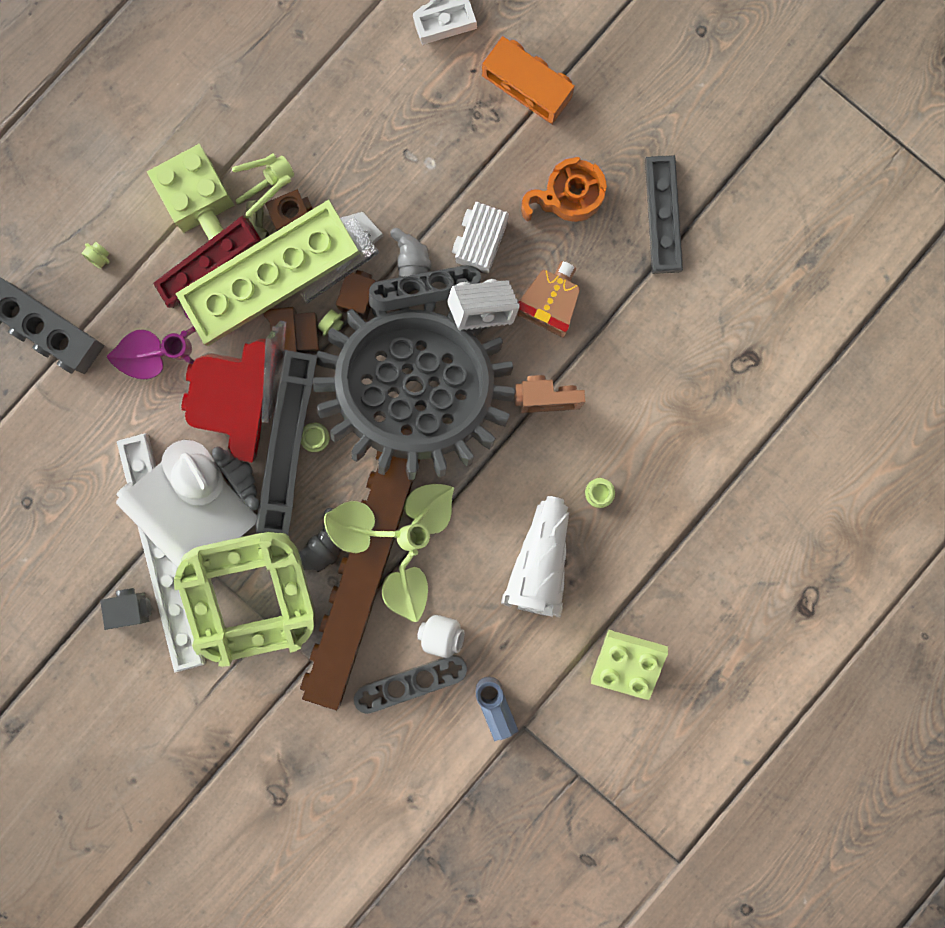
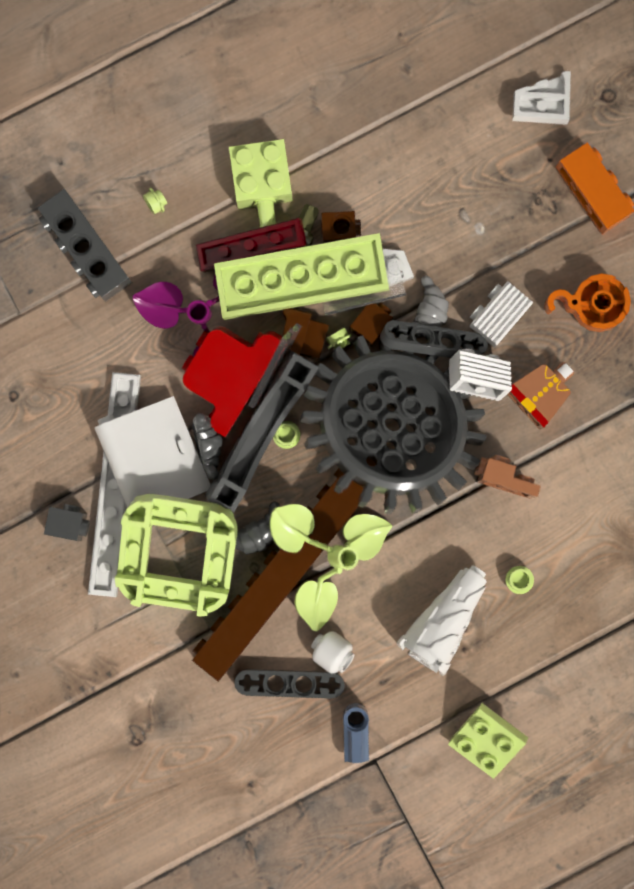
camera: 25 degrees right, 0 degrees up
(192, 472) = (169, 425): white piece -> none
(277, 173) = (342, 188): yellowish green plant -> none

